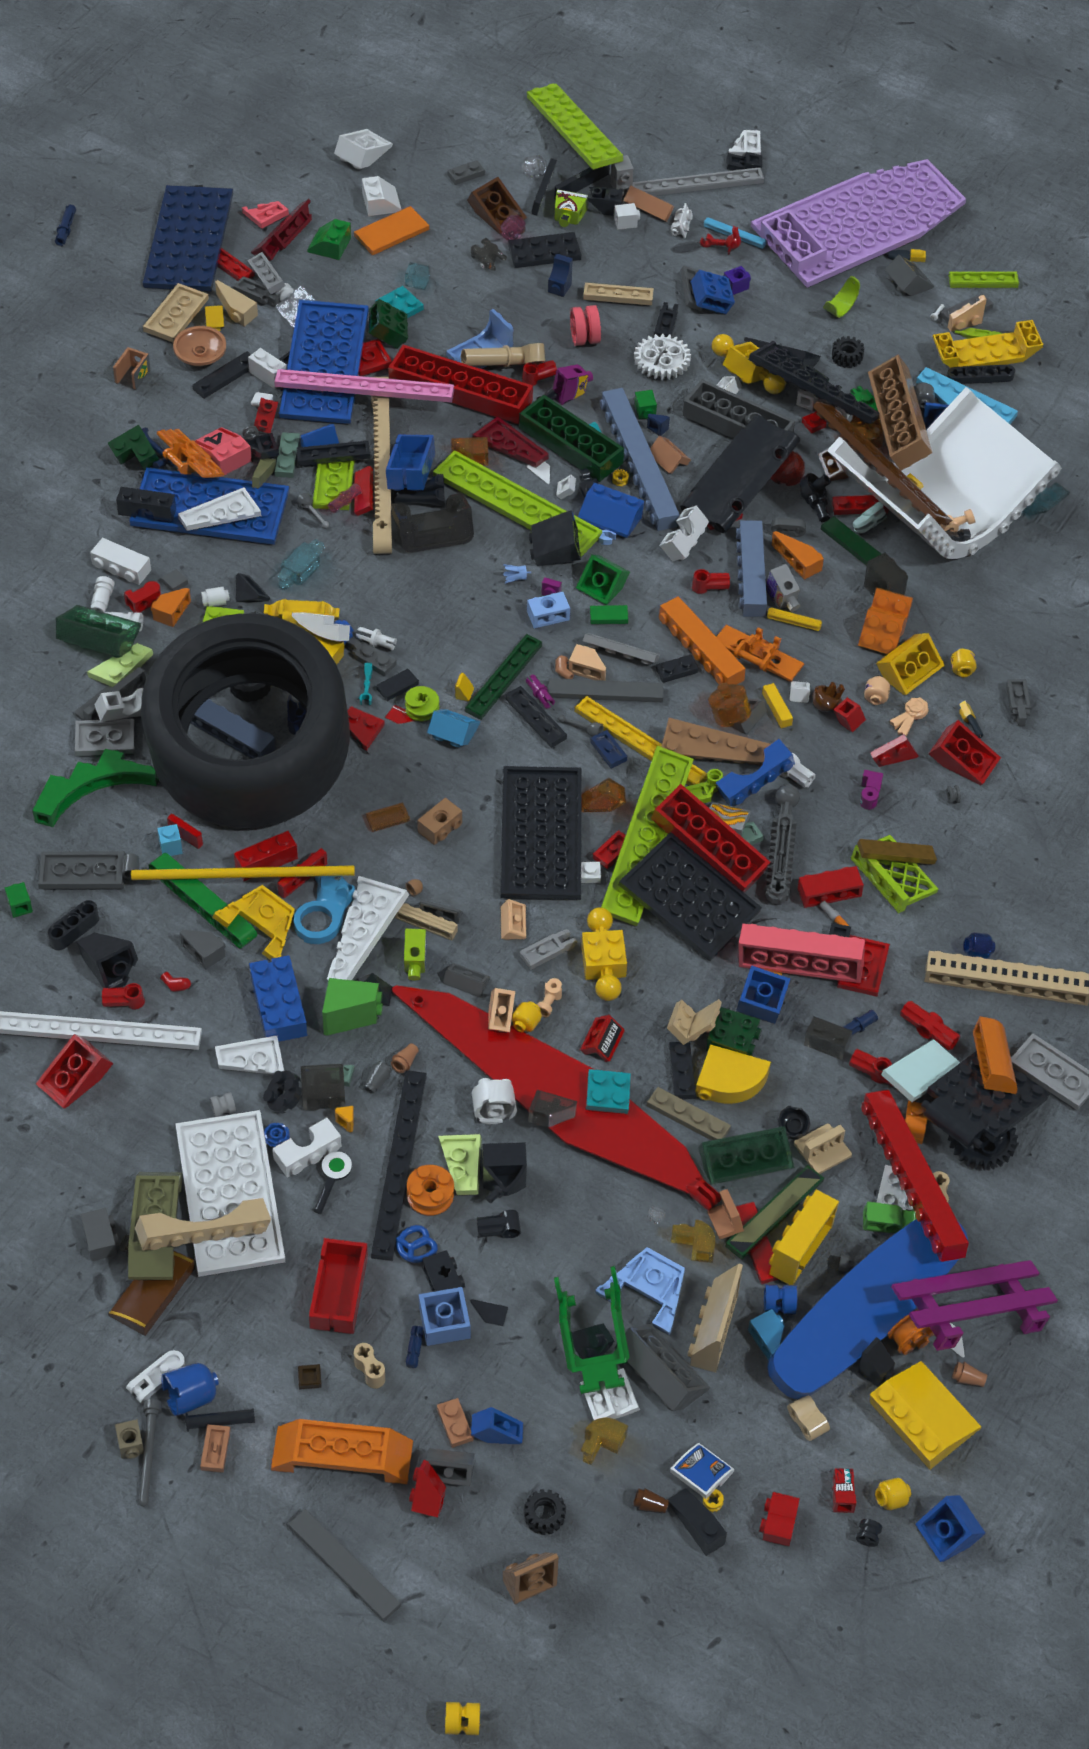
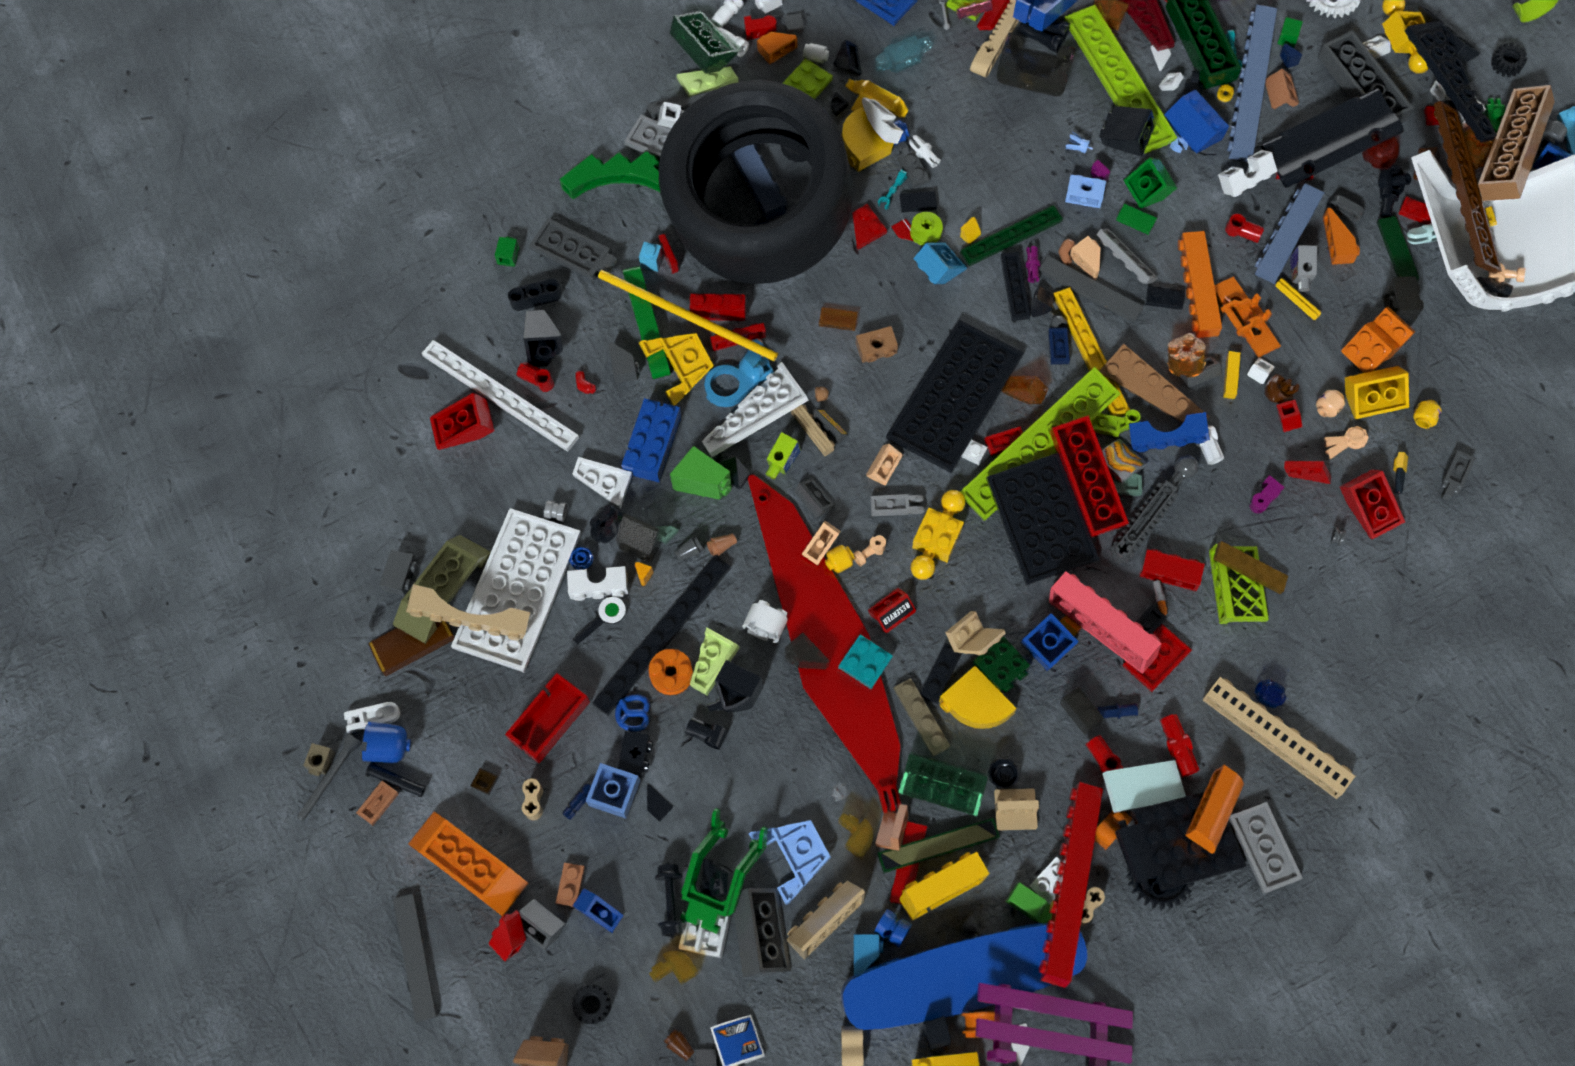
camera: 35 degrees right, 15 degrees up
(570, 719) = (1041, 302): none -> black tile
(578, 1403) = (672, 926): none -> black piece

